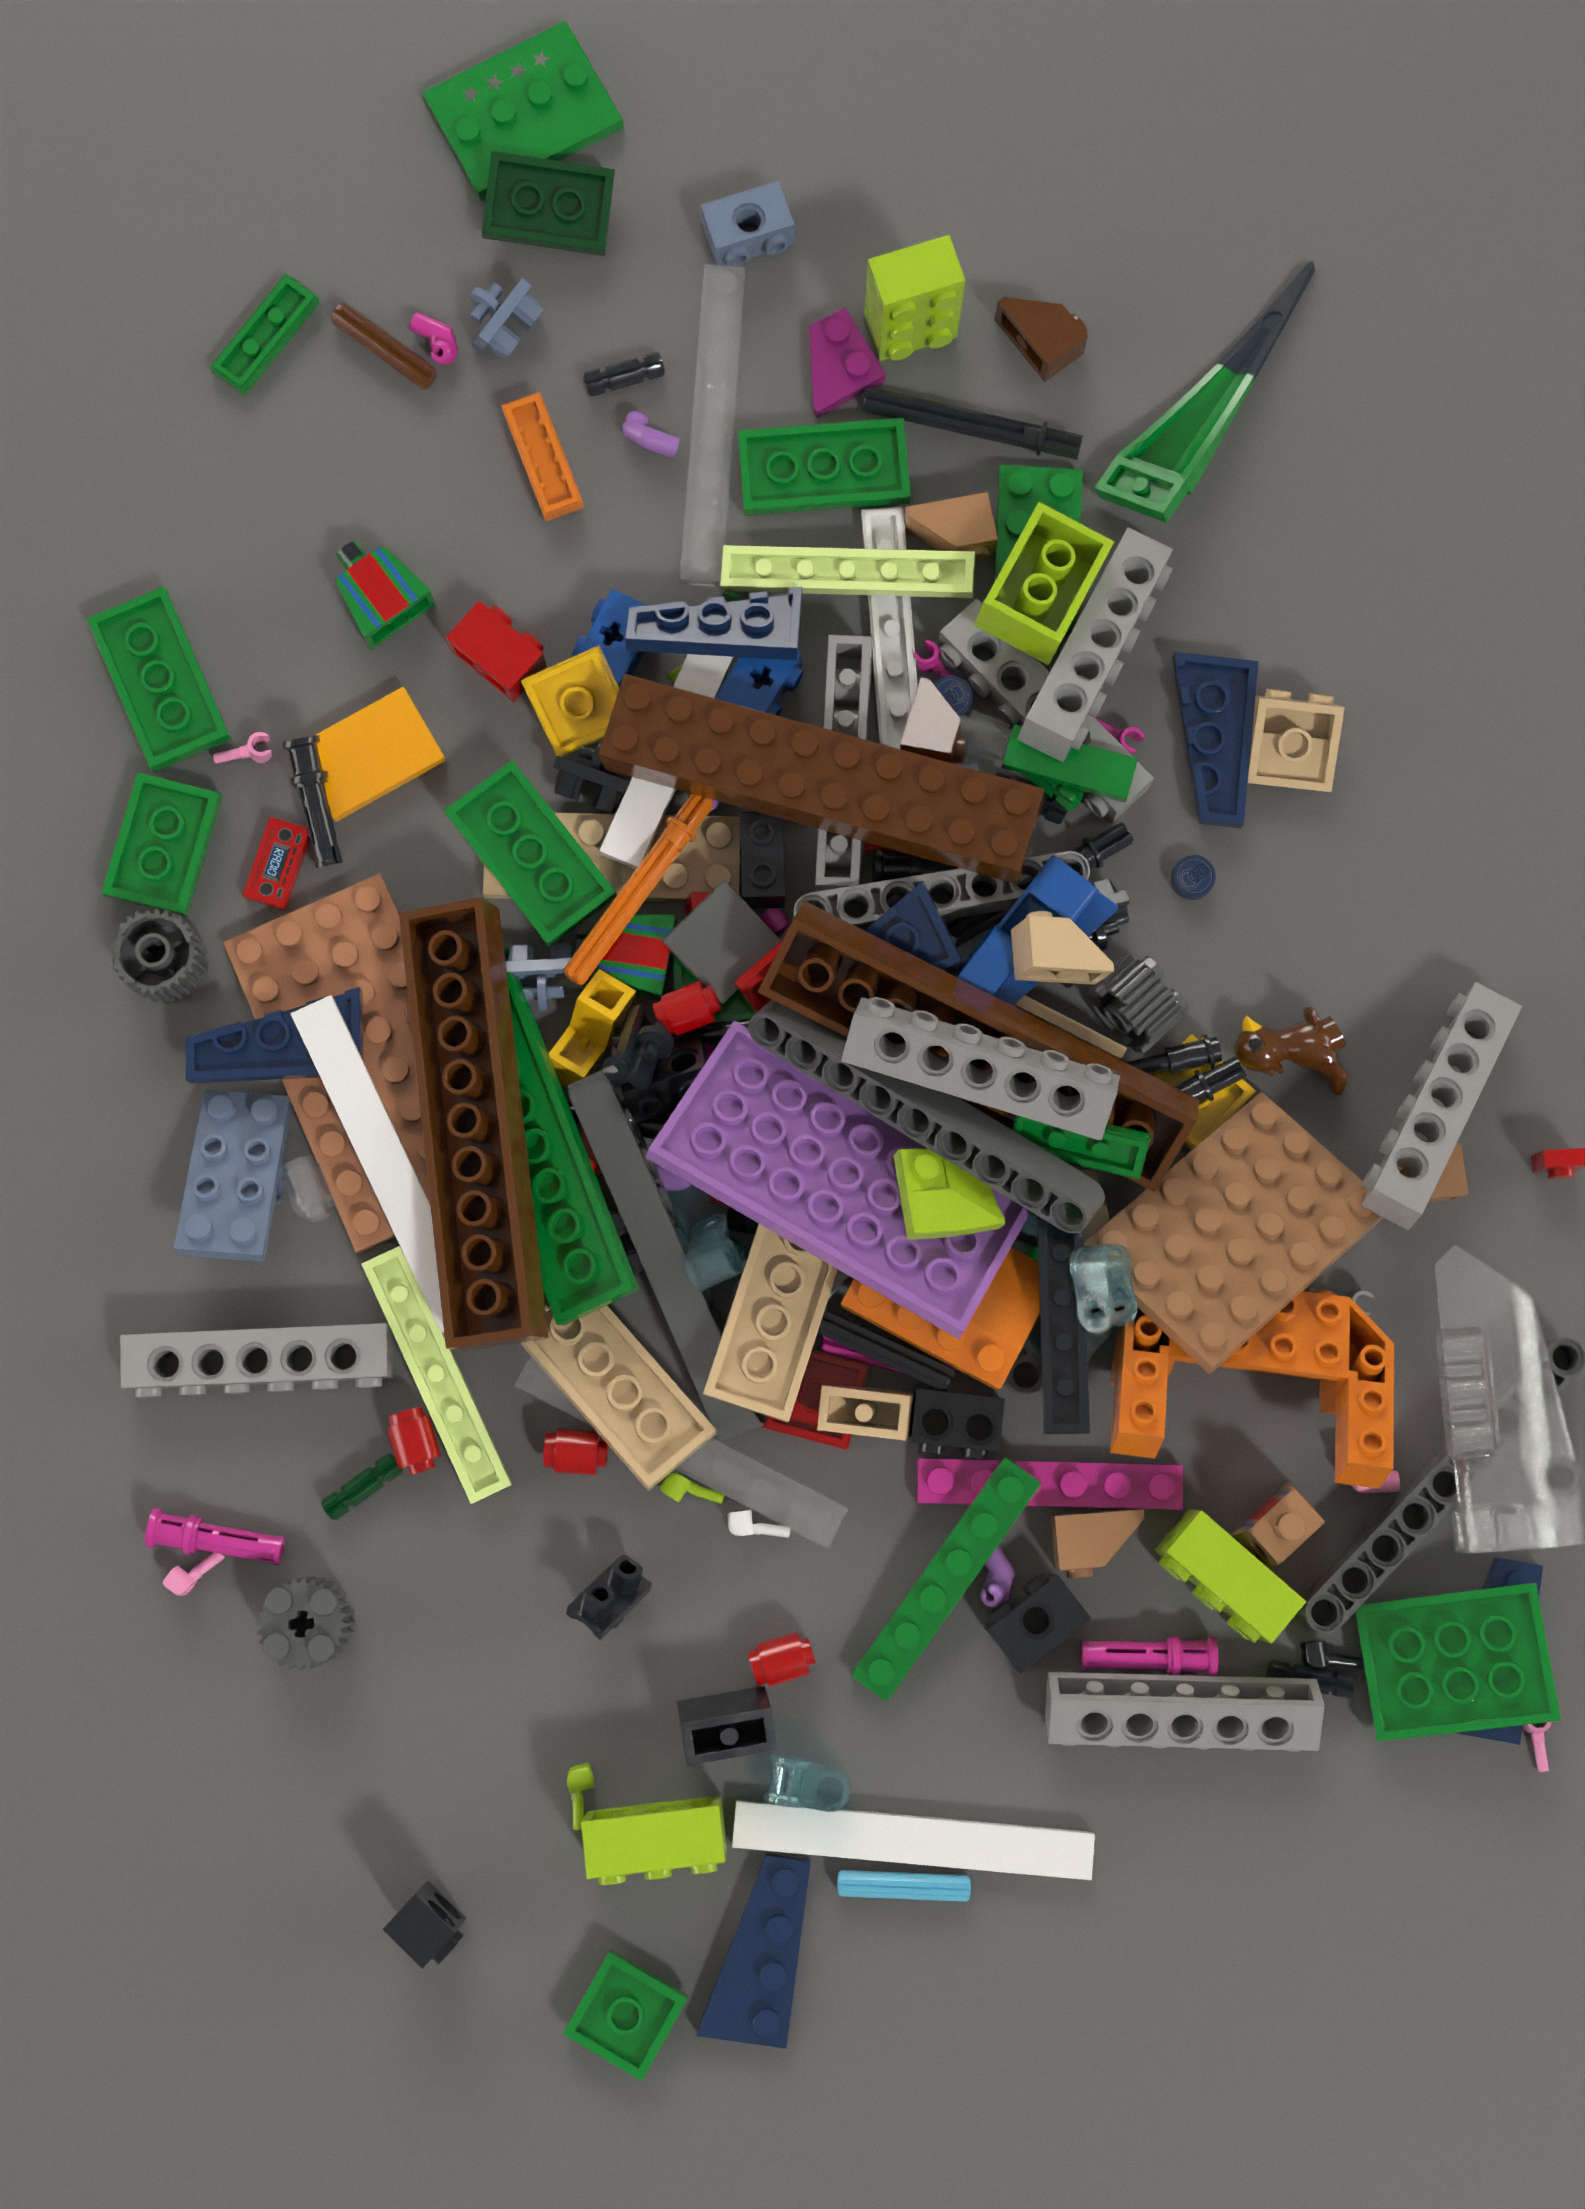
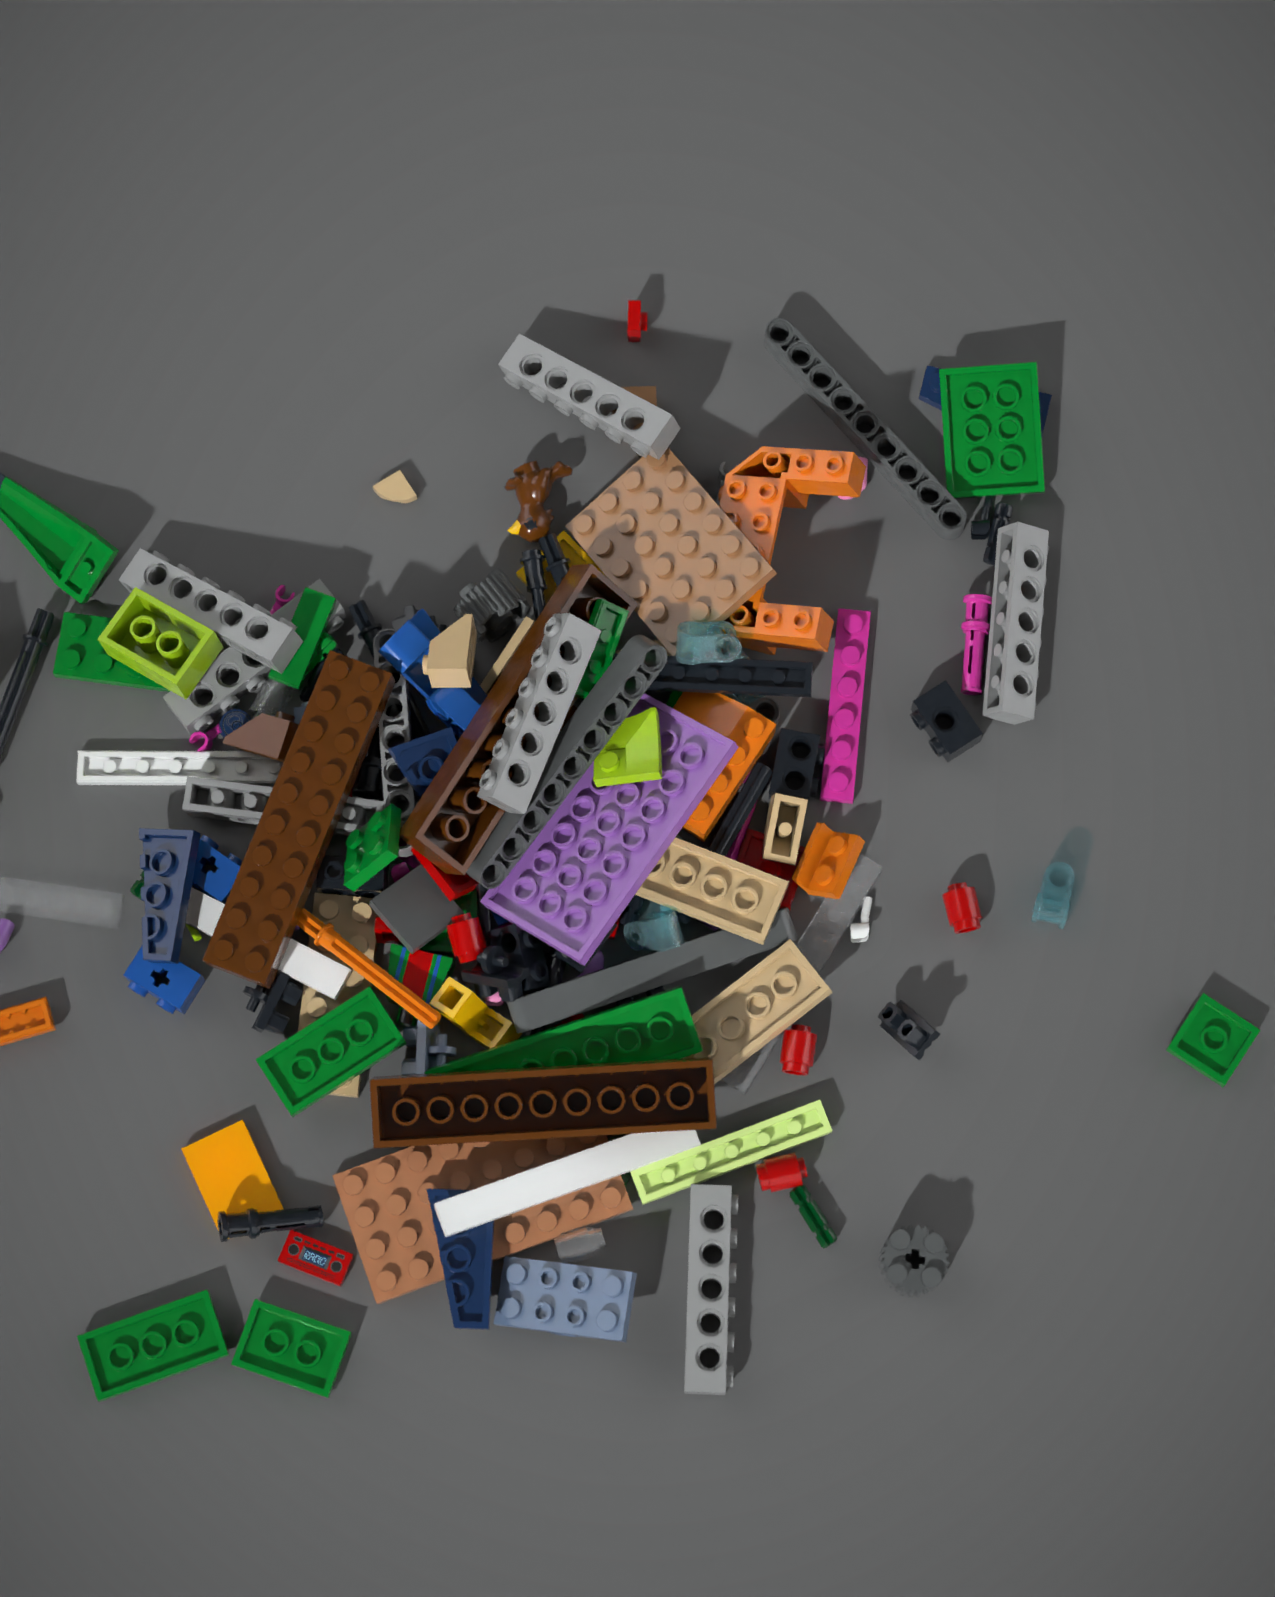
camera: 80 degrees left, 5 degrees down
(175, 972) = (365, 1348): dark grey brick -> none
(181, 1582) = (877, 1359): bright pink hand -> none
(193, 1535) = (841, 1346): dark pink pin -> none
(246, 751) = (220, 1280): bright pink hand -> none
(380, 592) = (101, 1163): torso -> none
(426, 1926) = (1142, 1177): black brick -> none
(496, 649) = (160, 1071): red brick -> none
(574, 700) = (211, 1009): yellow tile -> none
(579, 1779) = (1041, 1065): lime hand -> none
(654, 1839) = (1087, 1004): lime brick -> none
(676, 1486) = (828, 975): lime hand -> none
(726, 1725) = (1008, 949): black brick -> none
(759, 1972) = (1190, 942): dark blue wing -> none
(788, 872) = (372, 847): none -> green plate
(824, 466) = (38, 808): green plate -> none
(829, 1474) = (827, 862): none -> orange bracket
(848, 571) = (128, 794): yellowish green plate -> none
(903, 1885) = (1130, 833): medium azure axle -> none
(914, 1840) = (1097, 825): white tile -> none
(945, 1579) = (910, 783): green plate -> none
(955, 525) = (101, 709): medium nougat slope -> none
(998, 1580) = (911, 747): medium lavender arm -> none
(1090, 1538) = (887, 678): medium nougat slope -> none
(1193, 877) = (395, 560): dark blue tile -> none
(1217, 726) = (282, 530): dark blue wing -> none
(1228, 1577) = (921, 581): lime brick -> none
(1279, 1526) = (886, 542): medium nougat torso -> none
(1291, 868) = (395, 489): none -> tan tile
(1295, 741) = (298, 475): tan plate -> none
(1501, 1415) = (818, 380): clear panel -> none
(1538, 1740) = (1048, 382): bright pink hand -> none

